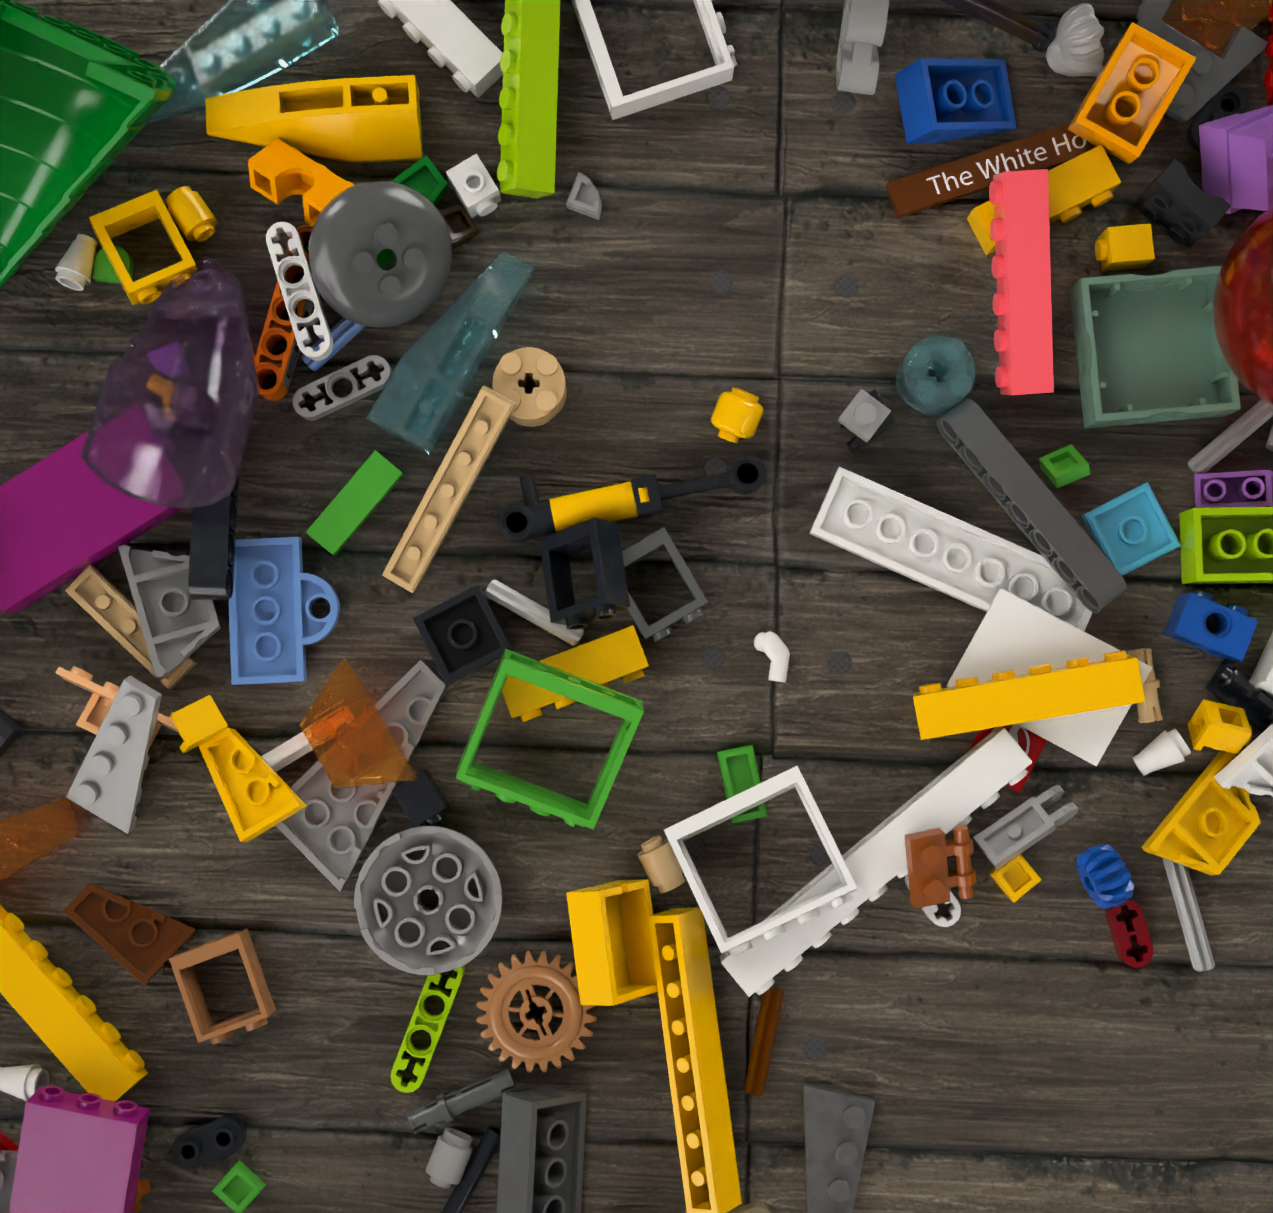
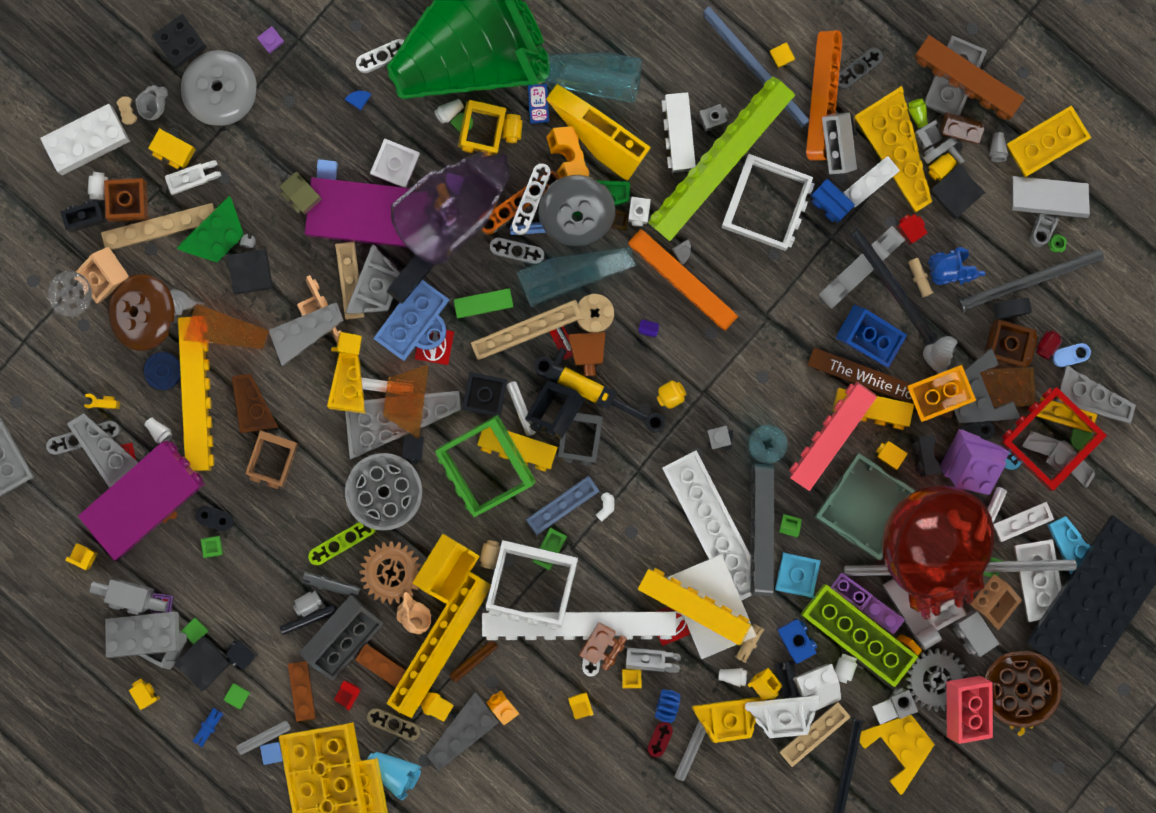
camera: 35 degrees right, 0 degrees up
(57, 401) = (395, 163): none -> white plate
(202, 150) = (538, 104): none -> tile
(351, 627) = (441, 353): none -> red sticker
(513, 464) = (562, 340): none -> sticker
(563, 448) = (588, 350): none -> dark orange torso
(618, 236) = (682, 280): none -> orange beam
(622, 1048) = (413, 615): none -> light nougat hair
(626, 347) = (648, 328): none -> dark purple slope
(632, 1159) = (380, 665): none -> dark orange plate
(708, 705) = (562, 505): none -> sand blue tile
(764, 1155) = (436, 706): none -> yellow tile
(862, 1076) = (502, 707): none -> light orange bracket
(973, 977) = (580, 705): none -> yellow panel

